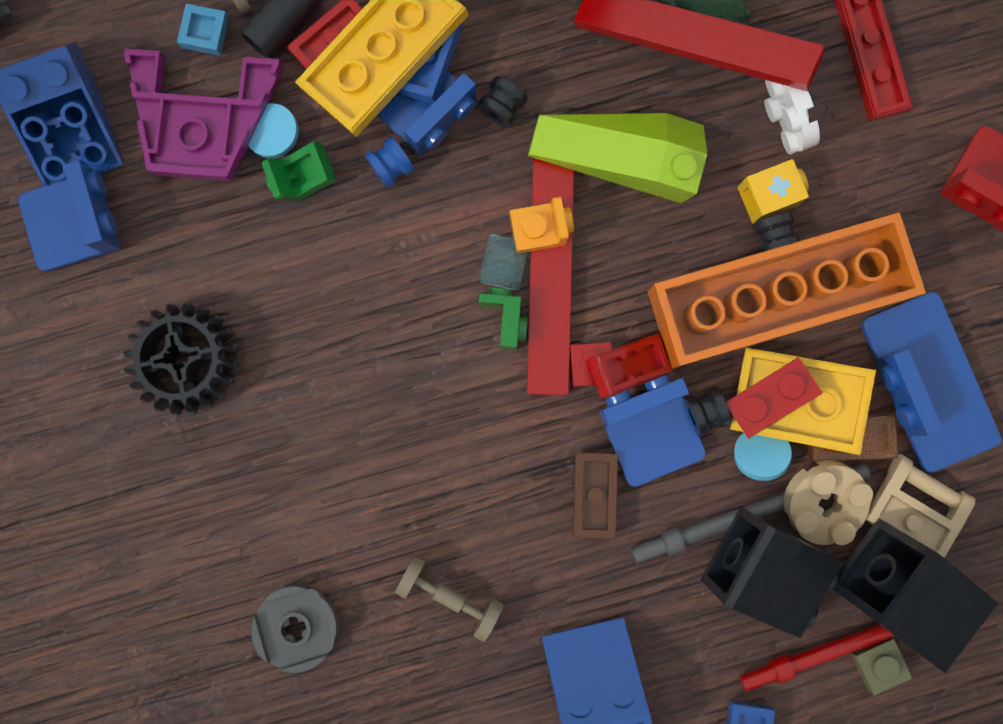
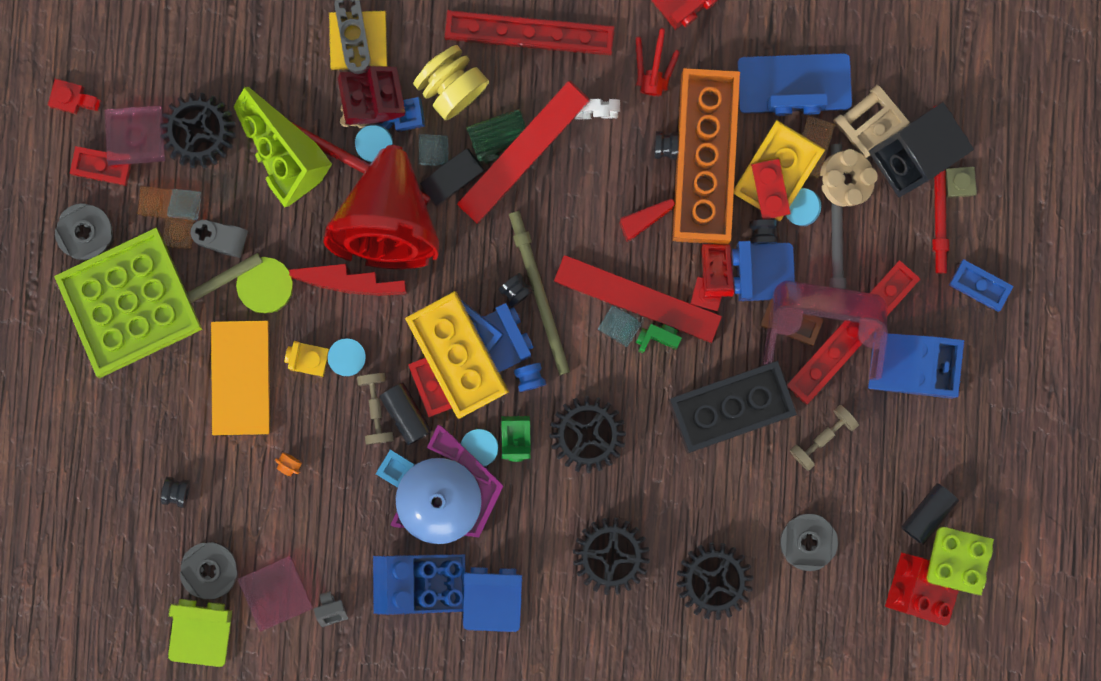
camera: 75 degrees left, 0 degrees up
(190, 531) = (702, 601): none -> black gear
(192, 111) = (459, 498): none -> medium blue dish
(305, 257) = (601, 414): none -> black gear
(443, 453) = (732, 407): none -> black brick
(541, 226) = (608, 294): light orange bracket -> none
(572, 91) = (522, 240): none -> olive bar
(614, 587) = (845, 339): none -> red plate
(634, 150) = (578, 214): lime wedge -> none
(653, 599) = (794, 299): none -> clear pink windscreen
(661, 237) = (639, 221): none -> red slope
(770, 573) = (878, 230): black slope -> none
(774, 190) = (637, 136): yellow brick -> none
(856, 183) = (652, 82): none -> red plant

